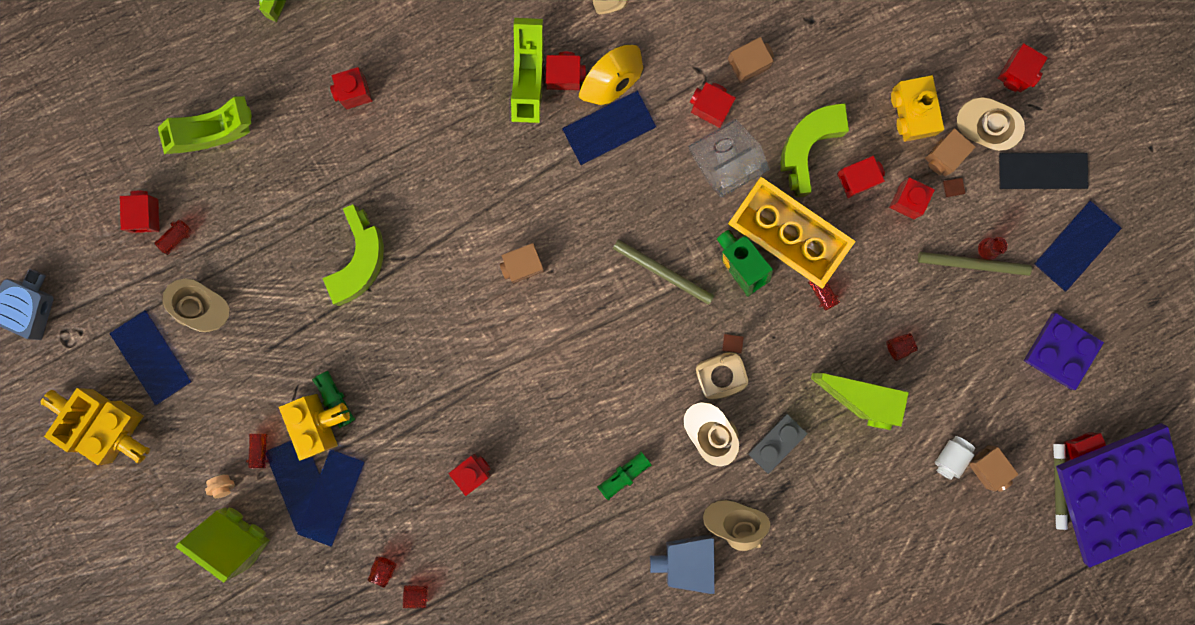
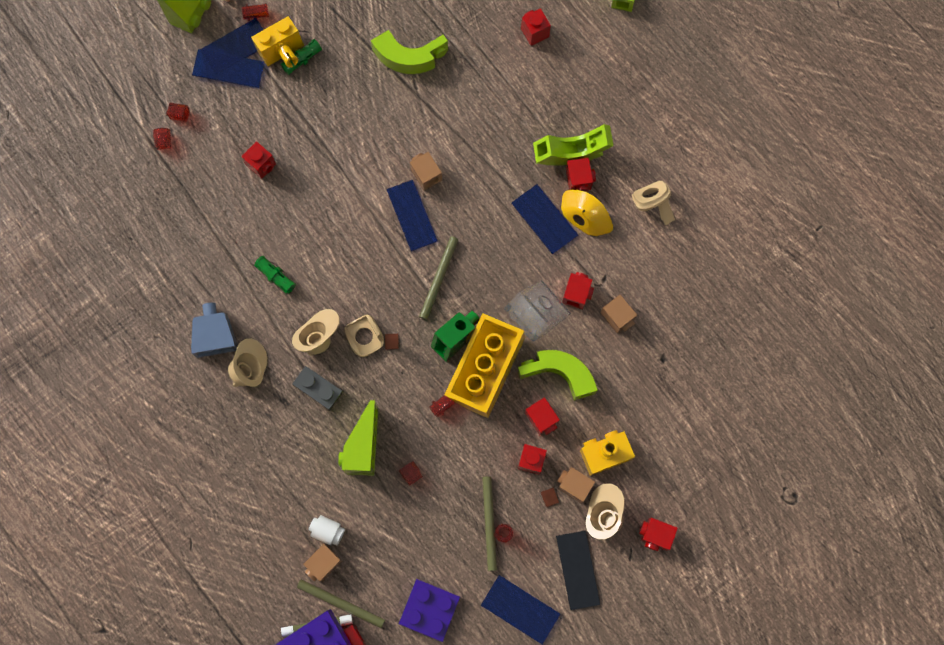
camera: 85 degrees right, 10 degrees down
(574, 292) = (411, 215): none -> clear blue piece
(1039, 454) = (340, 603): none -> olive bar

